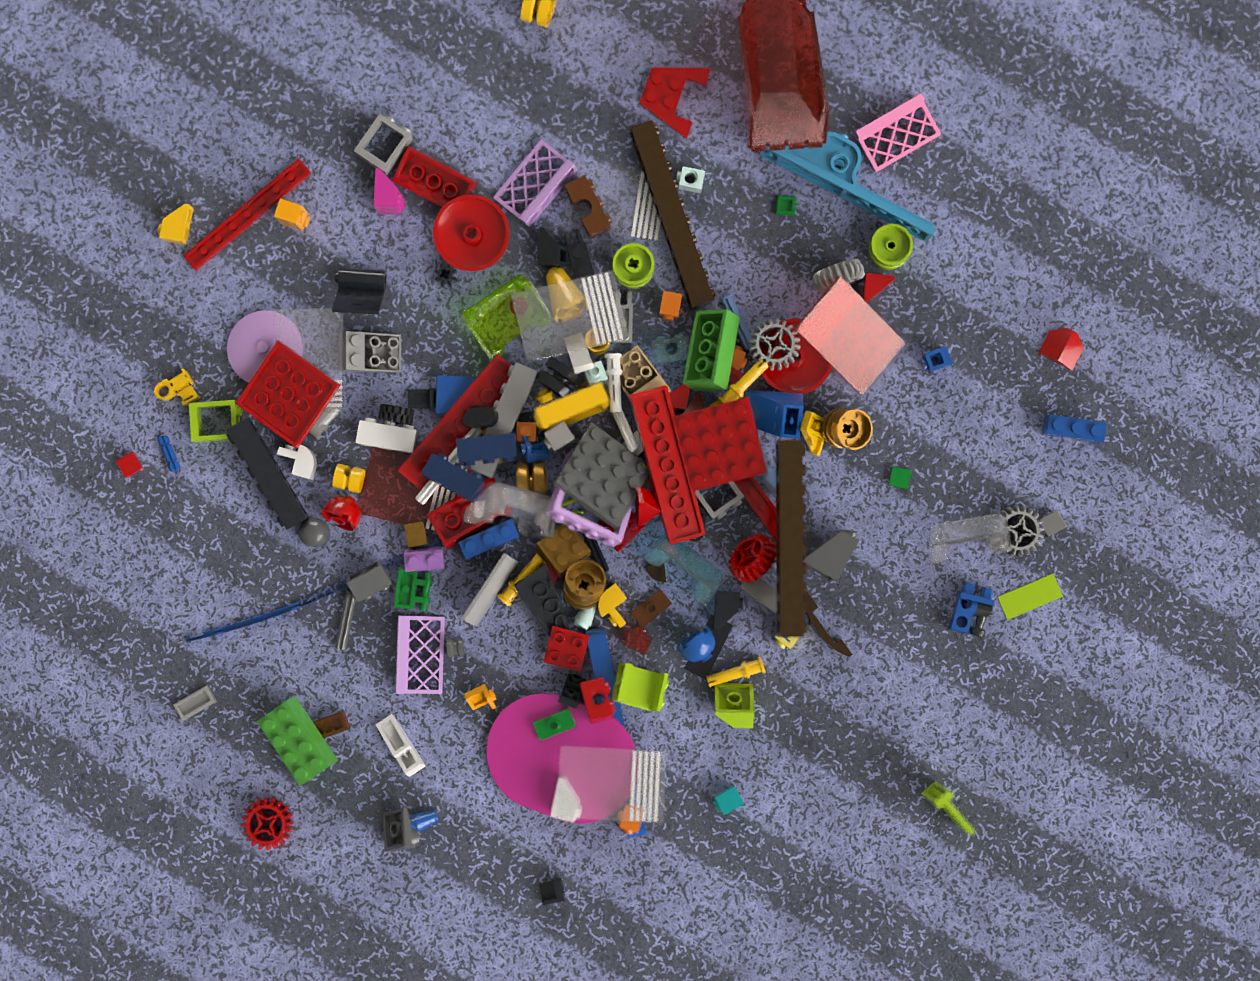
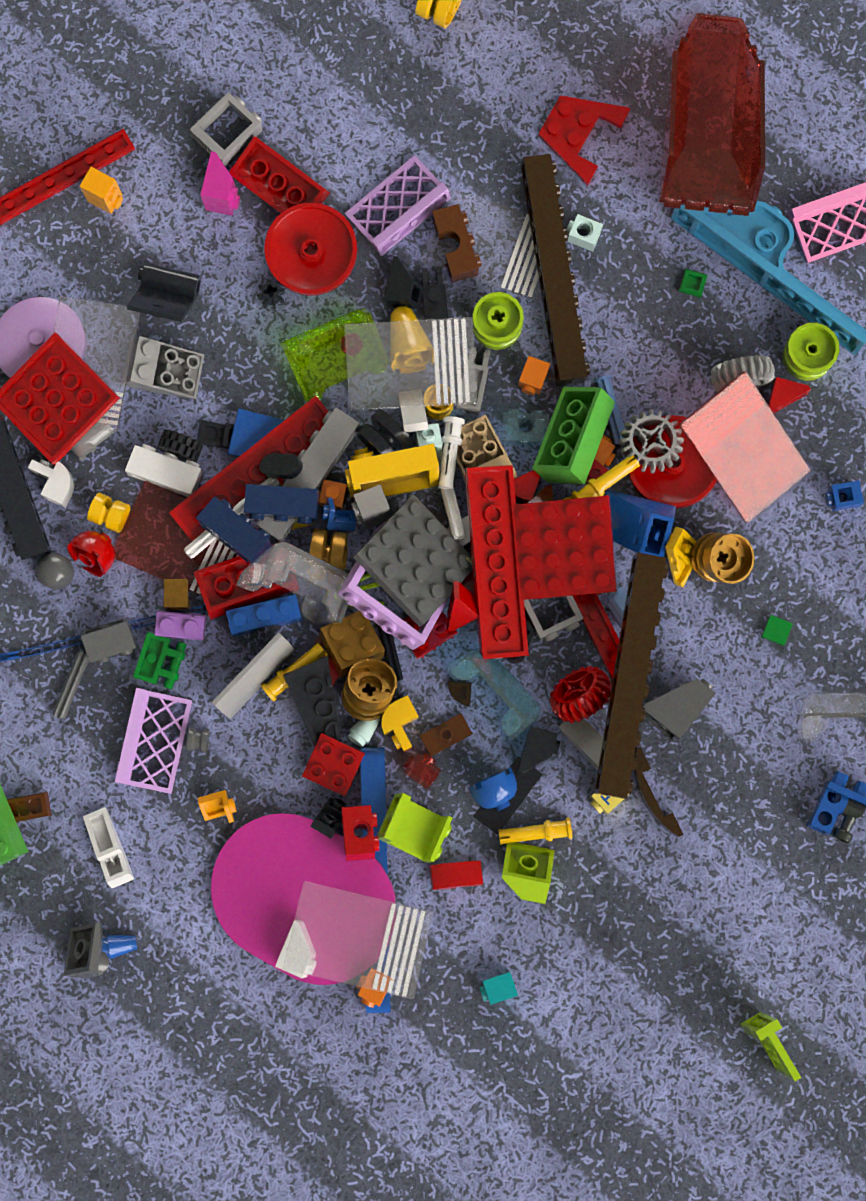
camera: 10 degrees right, 5 degrees down
(552, 892) = (260, 1063): black panel -> none
(554, 724) = (301, 854): green plate -> none
(678, 717) = (456, 875): none -> red slope

